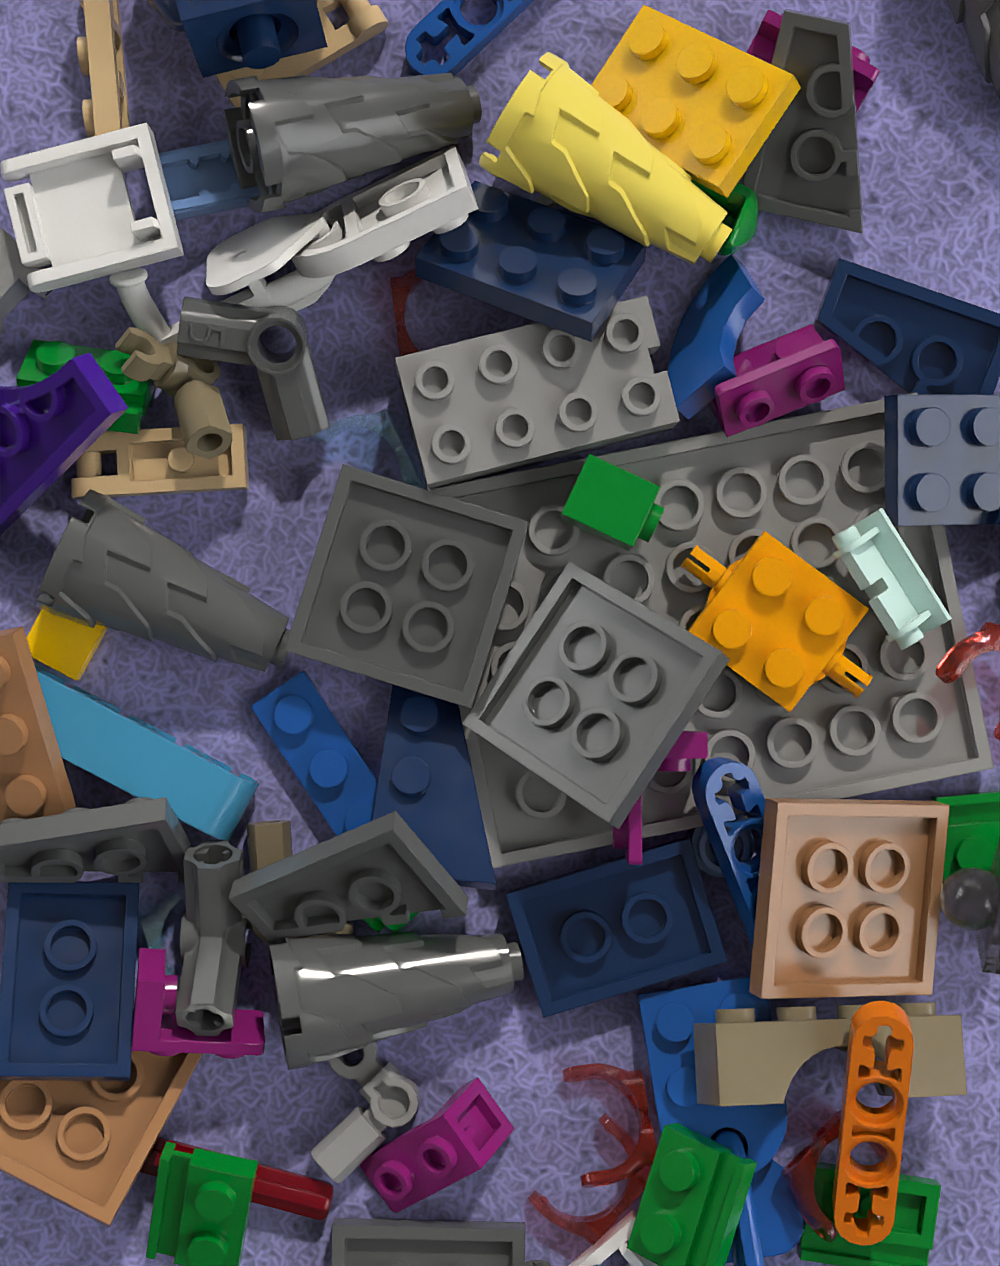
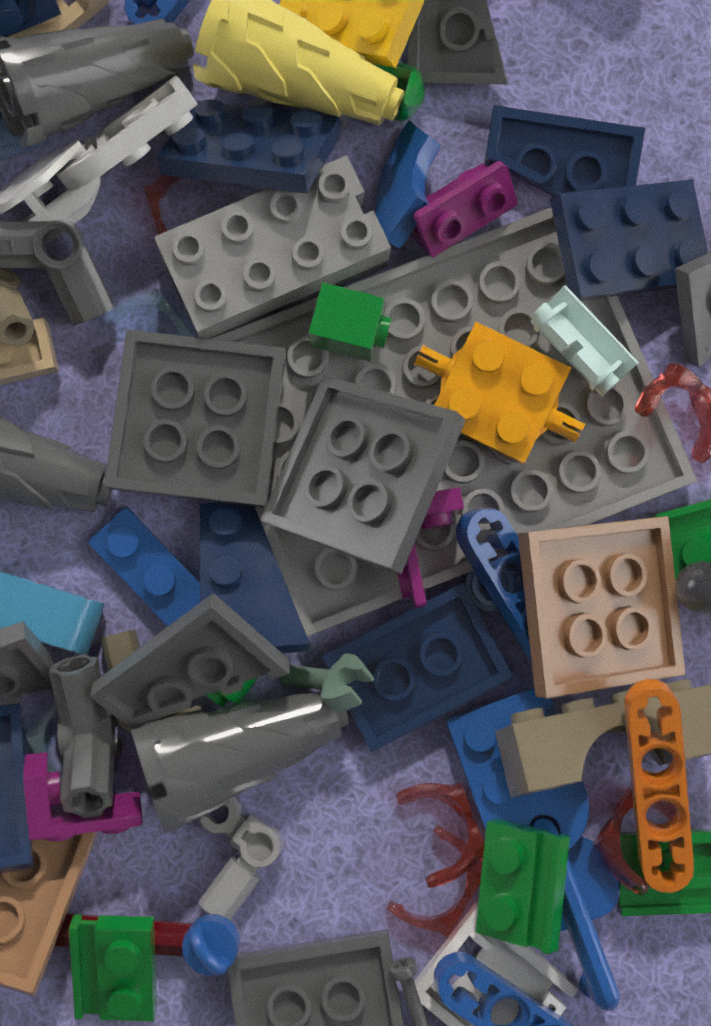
camera: 10 degrees left, 5 degrees down
(319, 1205) = (211, 945): none -> blue tile
(439, 1150) = (304, 879): magenta bracket -> none
(515, 928) = (332, 682): none -> sand green bar

